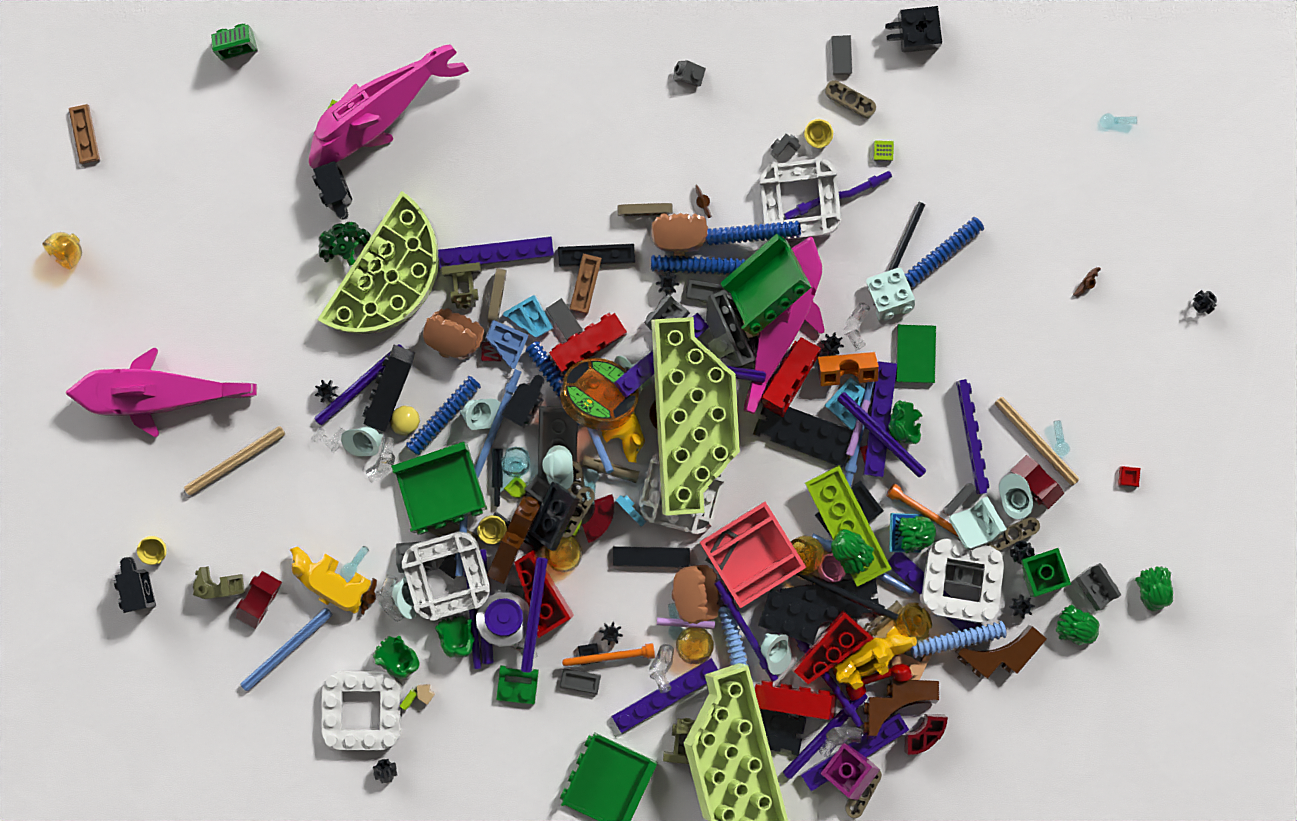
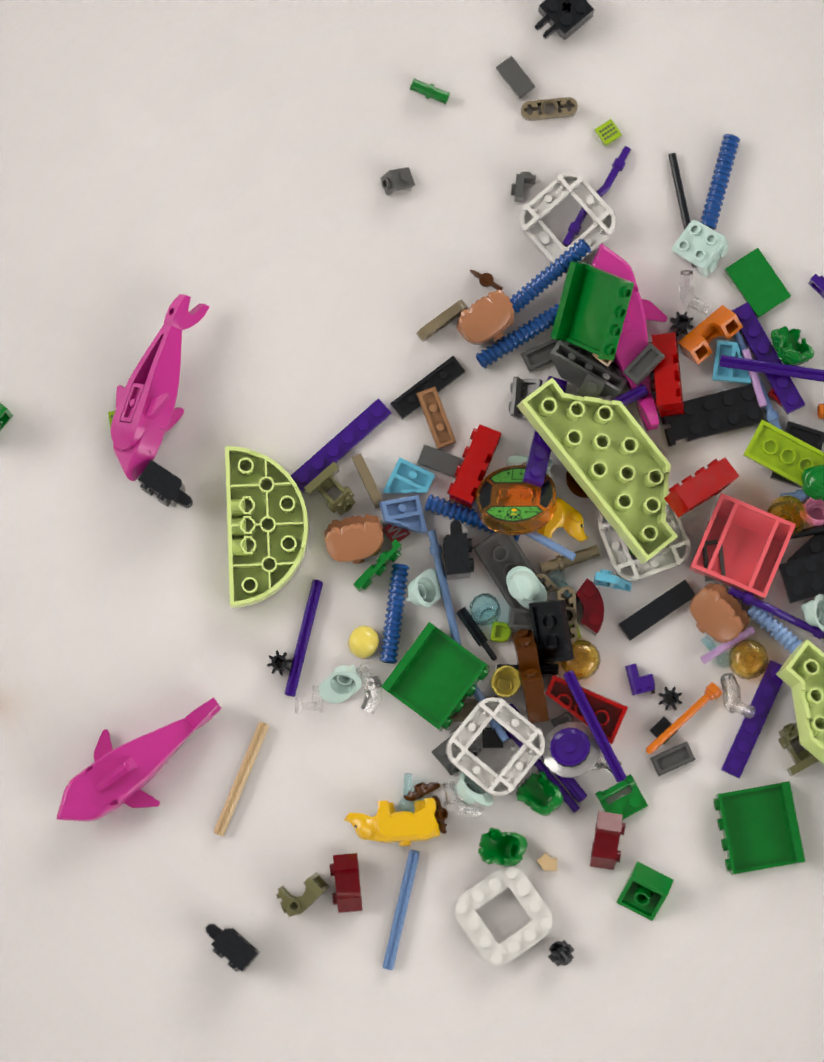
camera: 25 degrees left, 5 degrees down
(151, 550) = (224, 905): light yellow hair -> none
(345, 249) = (214, 512): dark green plant -> none
(367, 567) = (421, 790): none -> reddish brown piece
(389, 388) = (332, 621): black wedge -> none
(408, 699) = (538, 883): lime tile -> none
(456, 371) = (379, 568): none -> green wing
(482, 708) = (606, 840): none -> dark red brick
(484, 768) = (645, 891): none -> green slope
(595, 604) = (639, 684): none -> dark purple piece
(667, 278) = (502, 365): black gear -> none
(751, 486) = (701, 487): none -> red wedge
(765, 18) = (429, 91): none -> green pin
(776, 356) = (644, 364): none -> dark grey tile
(818, 133) = (543, 155): light yellow hair -> none

